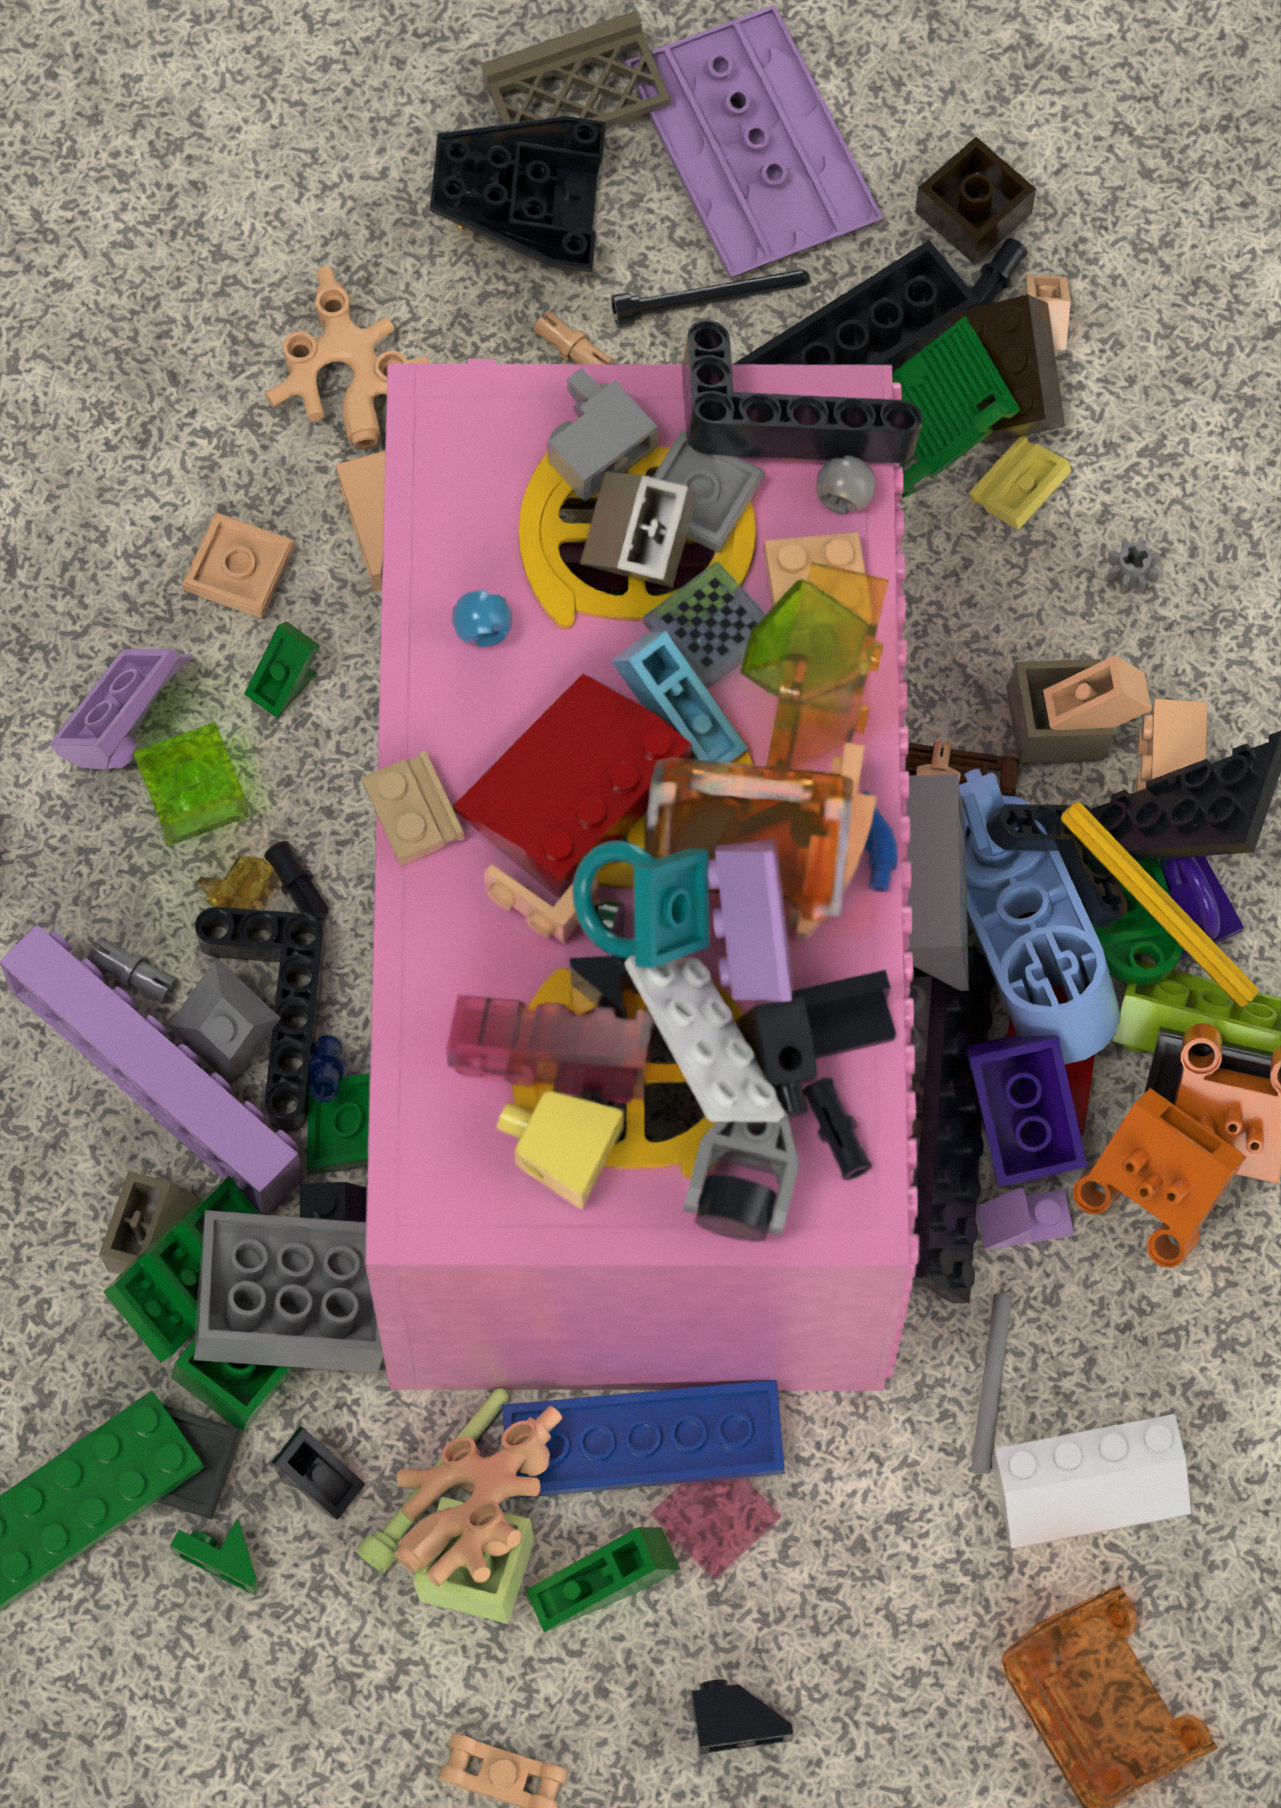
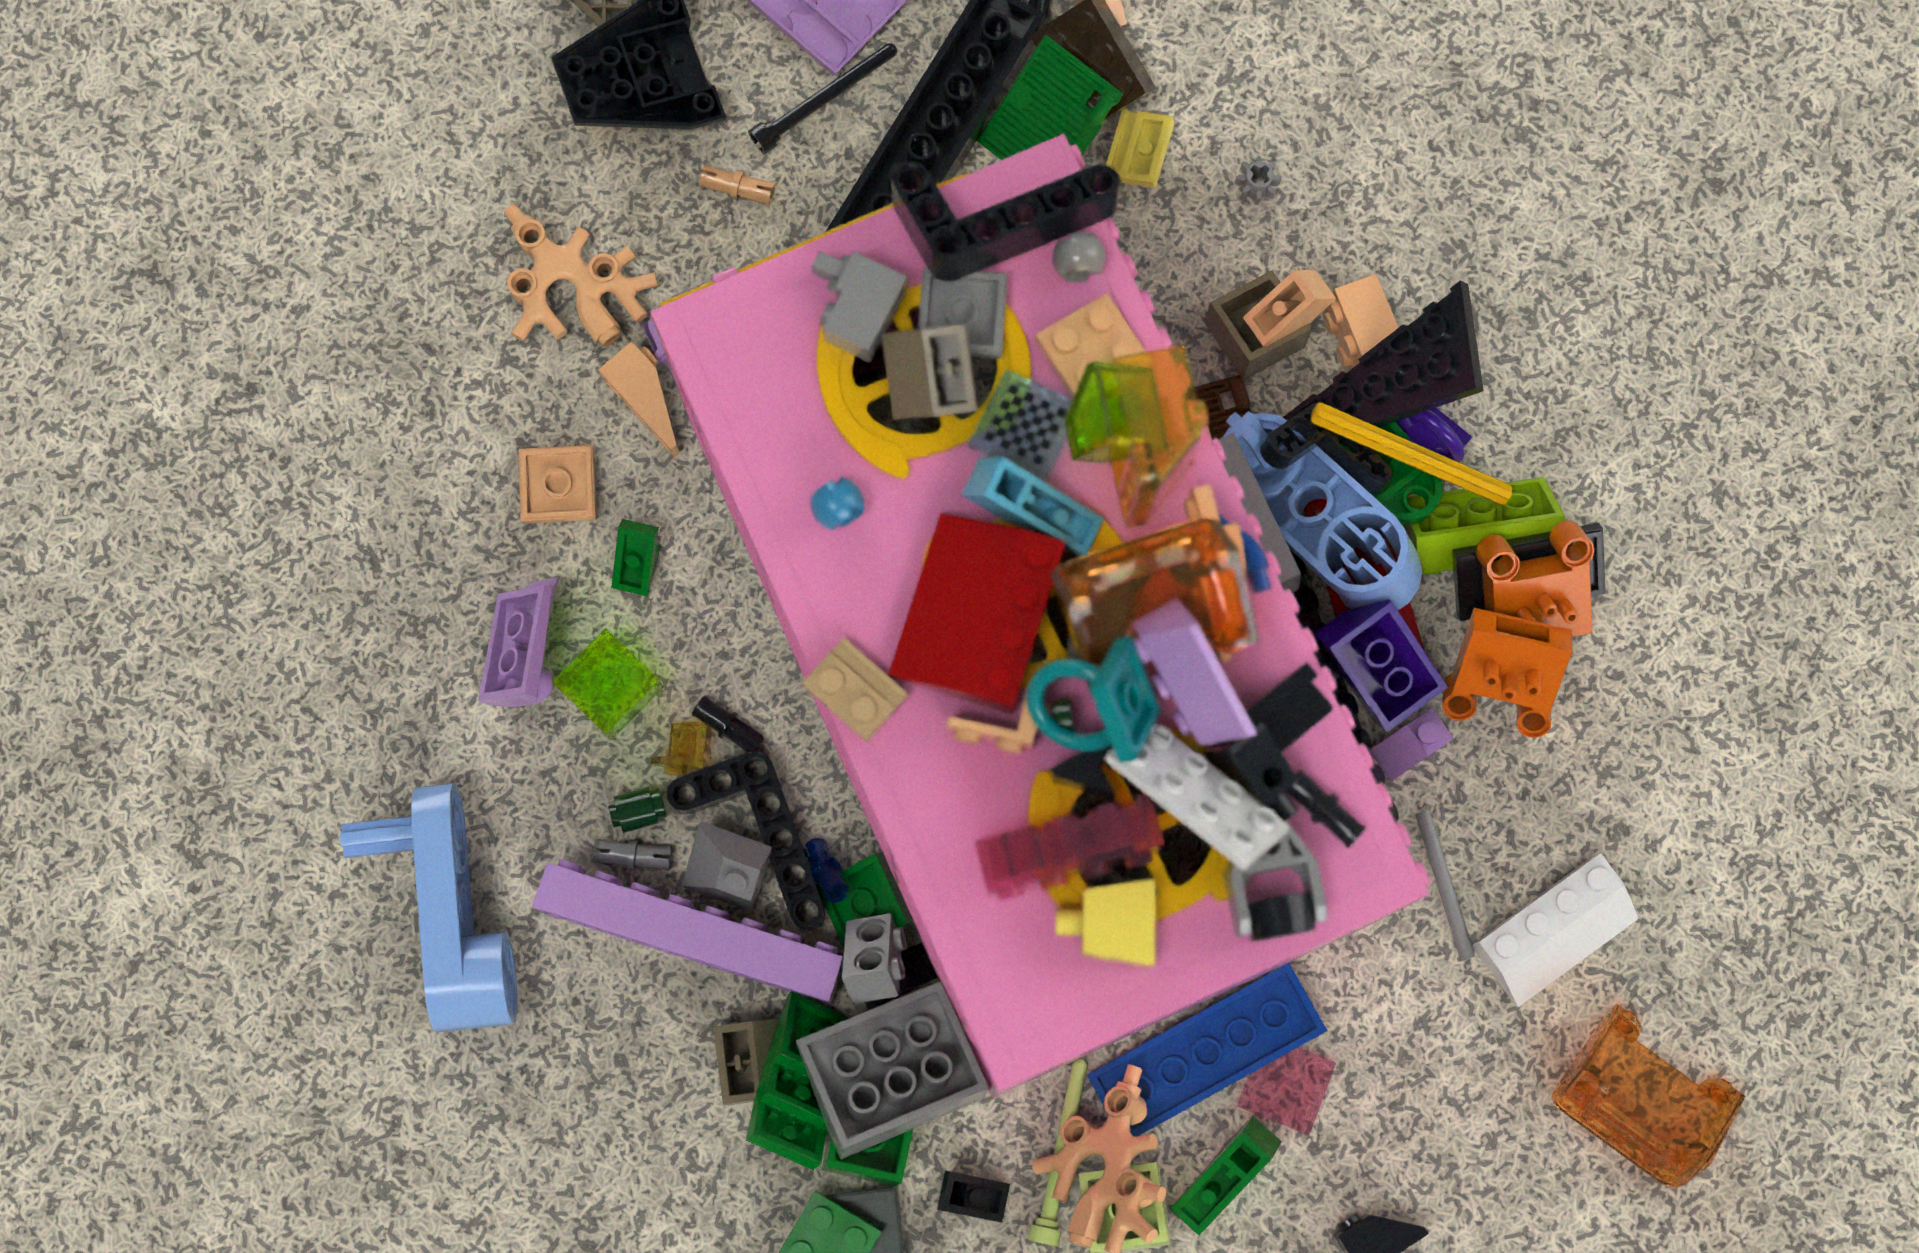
camera: 25 degrees left, 10 degrees up
(159, 925) = (637, 809): none -> dark green brick
(327, 1171) = (873, 958): none -> light grey brick

